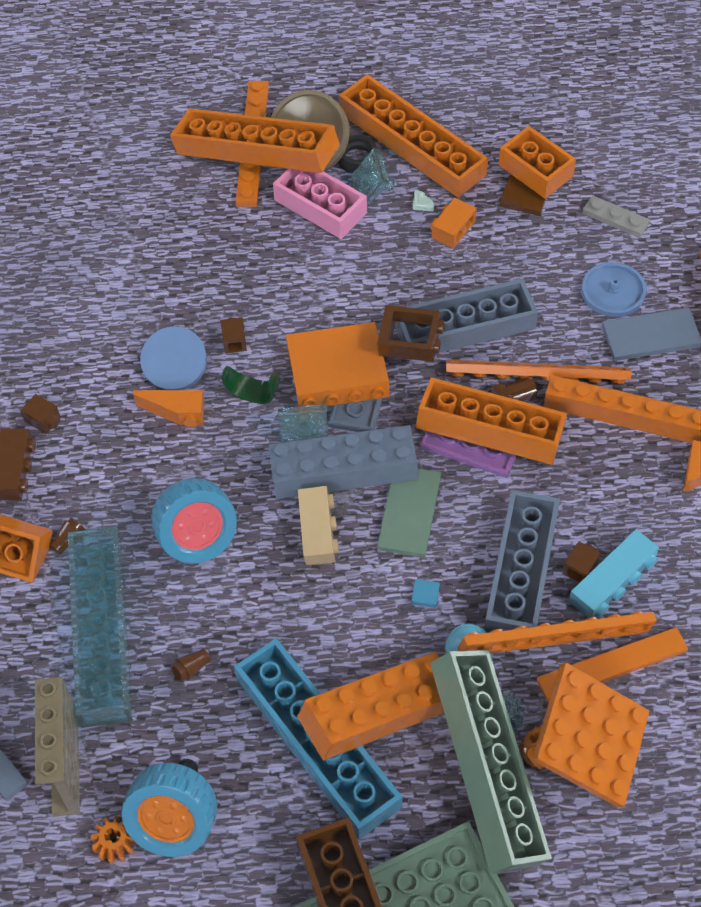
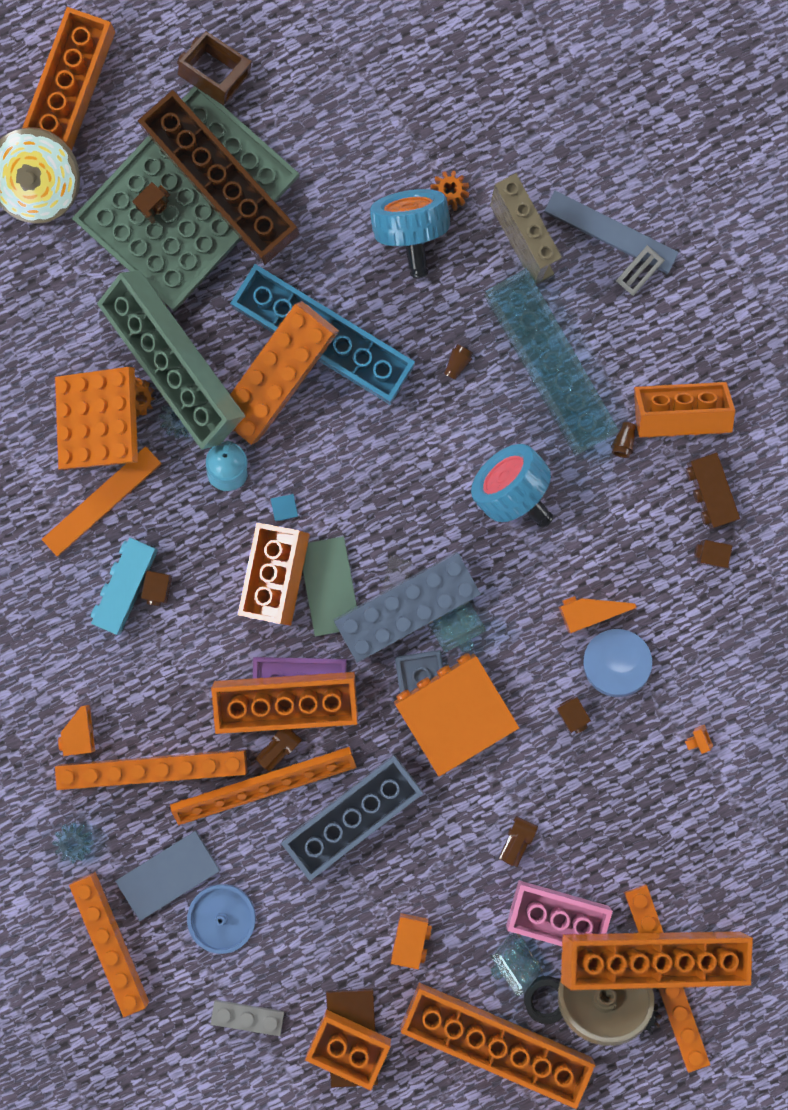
camera: 160 degrees right, 30 degrees up
(135, 283) = (700, 739): none -> orange tile
(250, 388) = (530, 662): dark green piece -> none
(317, 525) = (403, 533): tan brick -> none
(325, 265) = (517, 841): none -> reddish brown piece
(410, 350) = (417, 756): reddish brown window -> none
(422, 202) = (454, 962): light aqua tile -> none
(459, 529) = (273, 574): none -> orange brick
(522, 562) = (206, 561): sand blue brick -> none
(558, 634) = (159, 492): orange plate -> none

